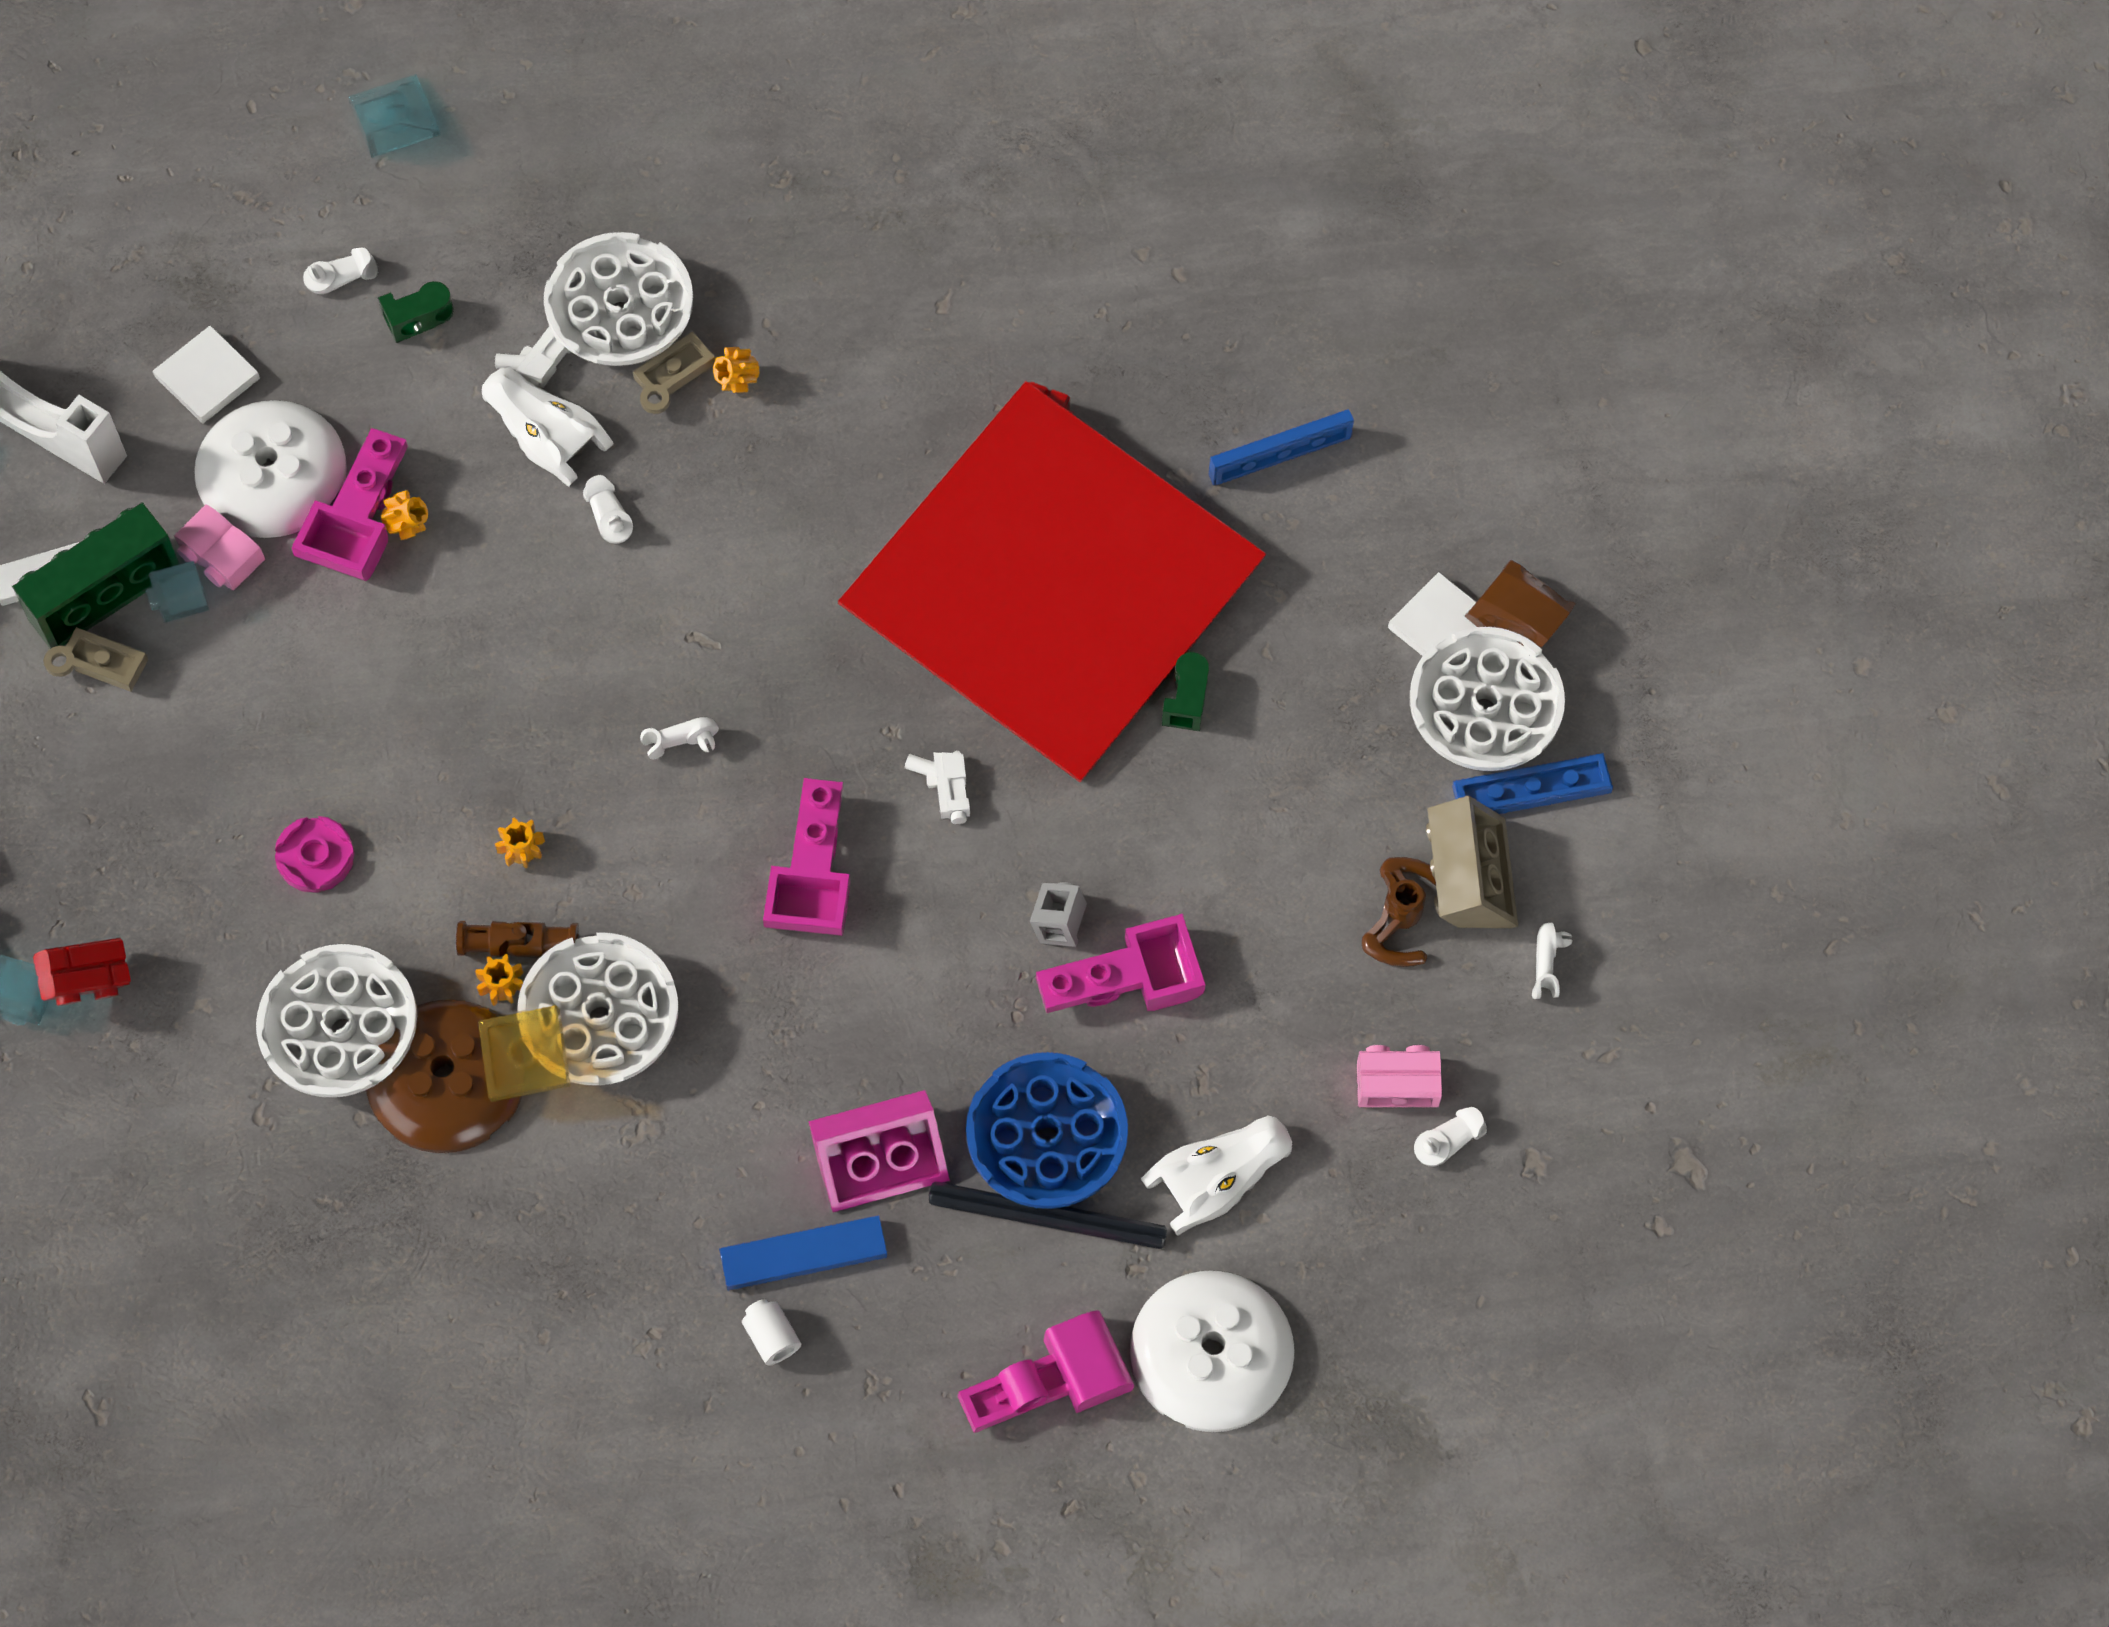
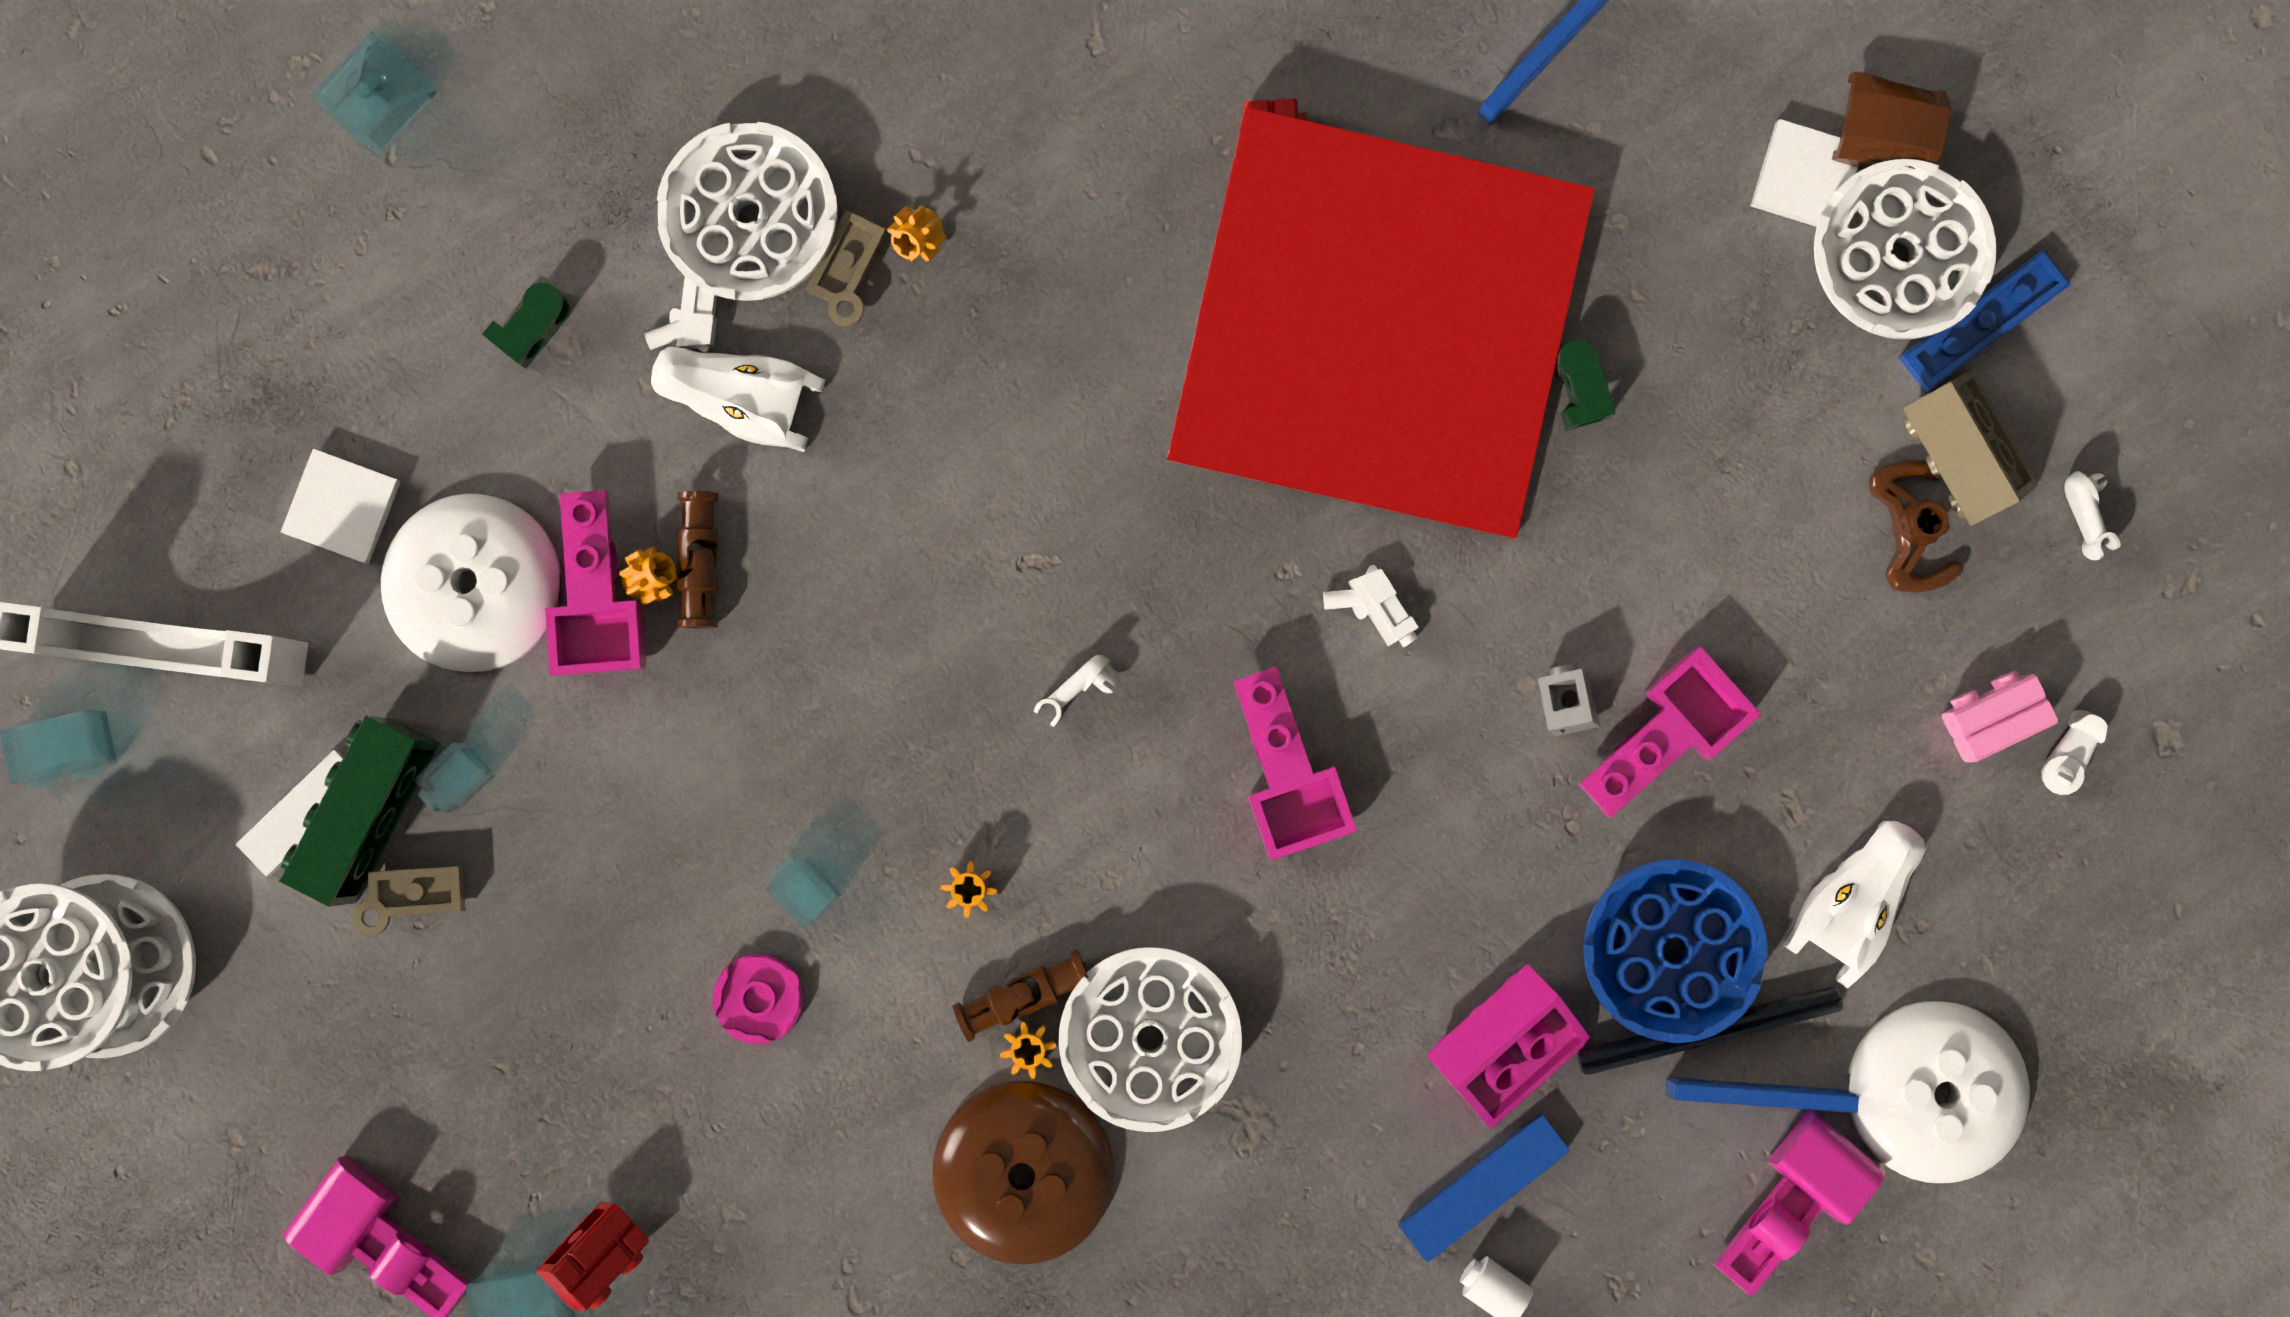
camera: 25 degrees left, 20 degrees up
(219, 548) = (469, 707): bright pink brick -> none
(316, 993) = (852, 1210): white brick -> none
(327, 276) = (412, 323): white piece -> none
(392, 787) = (801, 890): none -> clear light blue brick
(447, 523) = (697, 567): none -> reddish brown piece
(524, 1053) = (1102, 1129): clear yellow tile -> none
(610, 516) = (866, 466): white piece -> none
(1063, 1278) = (1761, 1094): none -> blue tile

